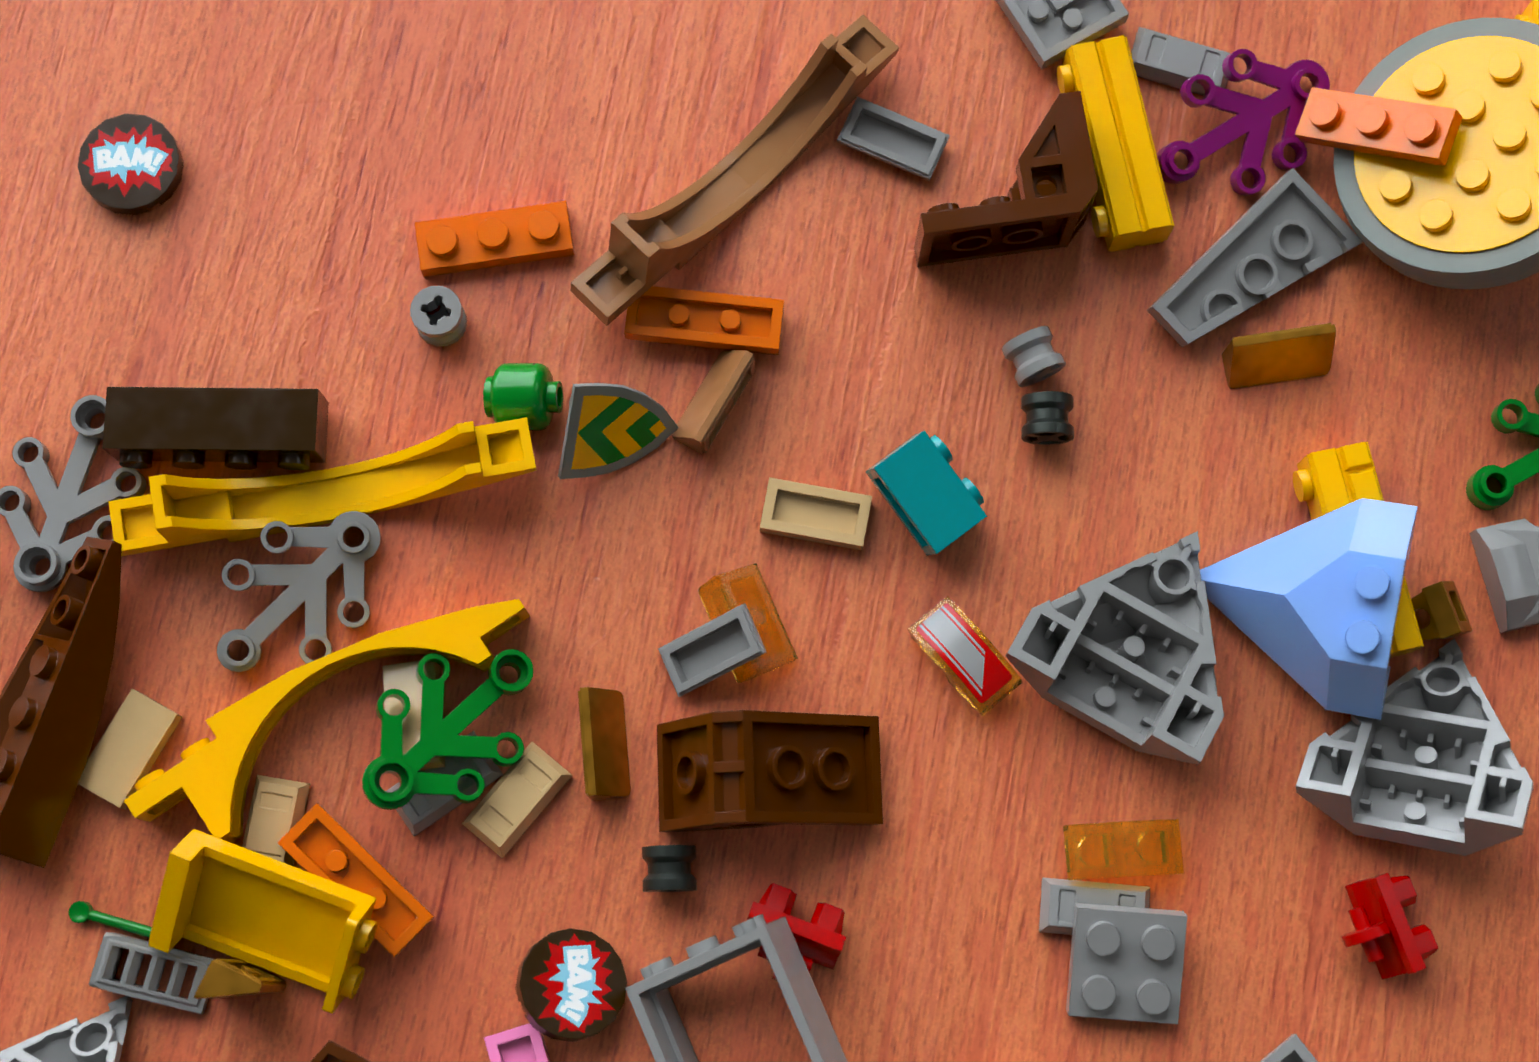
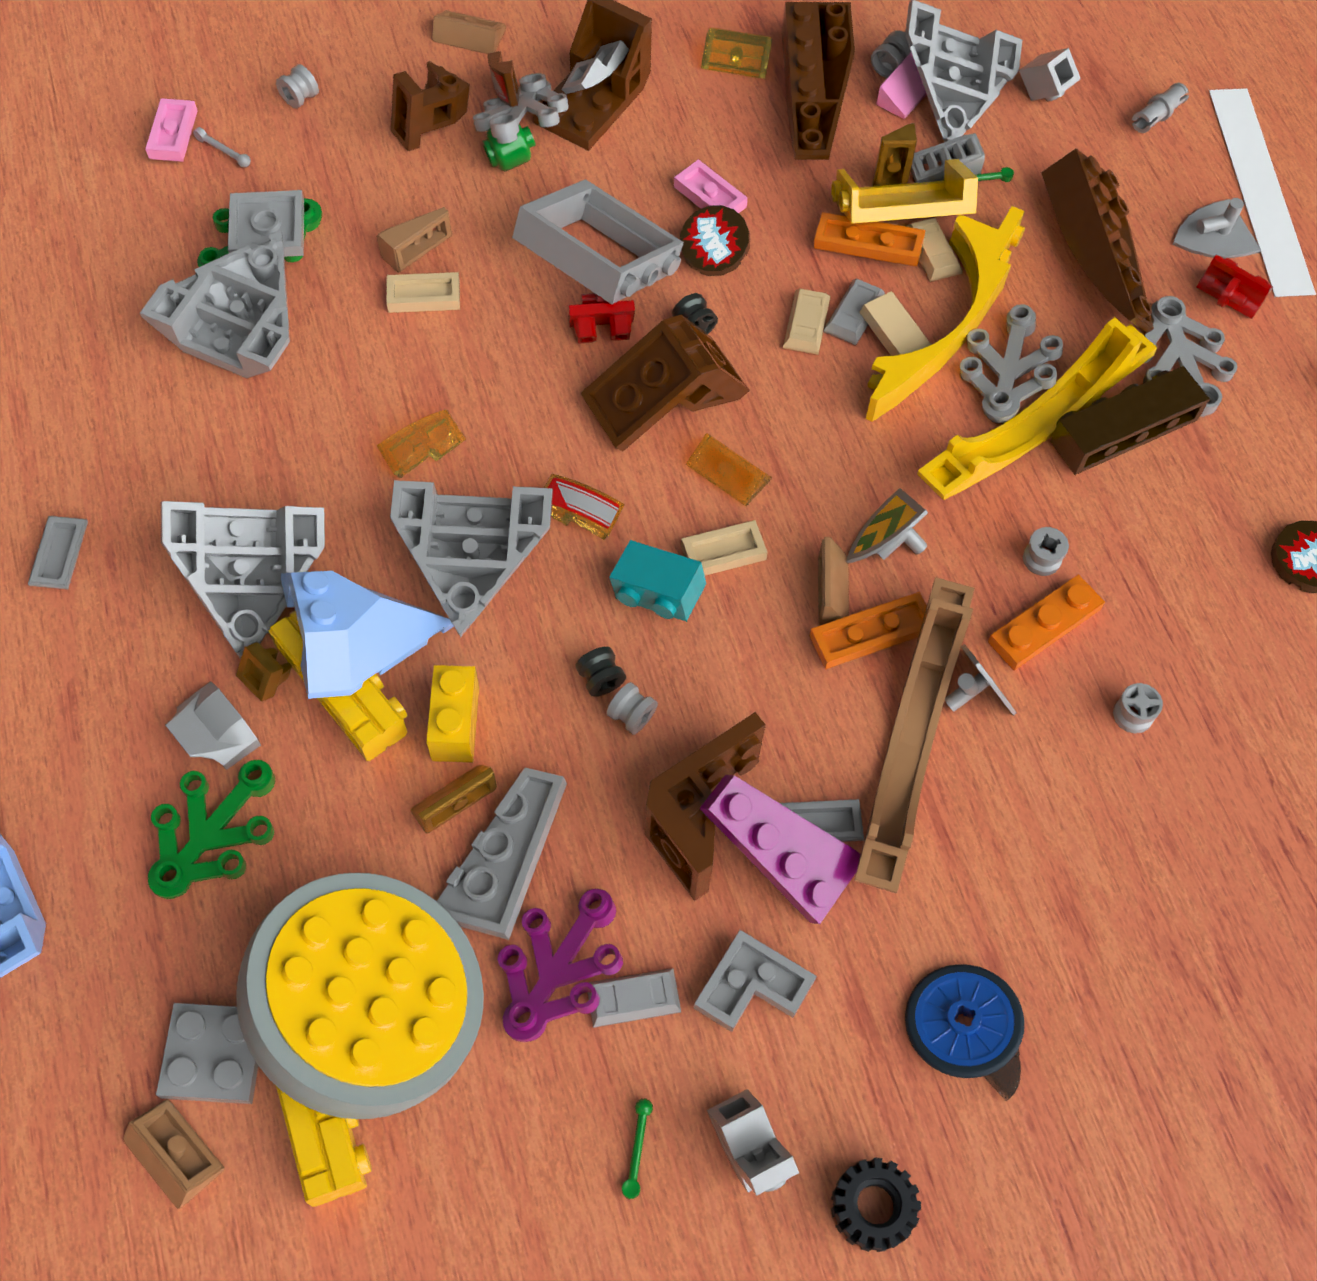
camera: 150 degrees right, 15 degrees down
(128, 748) = (1043, 252): tan tile -> none
(441, 736) = (871, 315): green plant -> none
(464, 77) = (1142, 698): none -> light grey wheel
(523, 392) = (957, 525): green head -> none
(604, 743) = (776, 363): pearl gold slope -> none
(627, 185) = (972, 686): none -> light grey shield
(712, 650) = (739, 433): light grey tile -> none
(964, 99) = (786, 848): none -> wing
(1060, 896) = (412, 408): light grey tile -> none
(1126, 963) = (391, 382): light grey plate -> none
(1130, 184) = (651, 894): yellow brick -> none
(1242, 444) = (453, 713): none -> yellow brick
(1379, 126) = (450, 977): plate -> none
(1384, 927) = (217, 460): red hips -> none

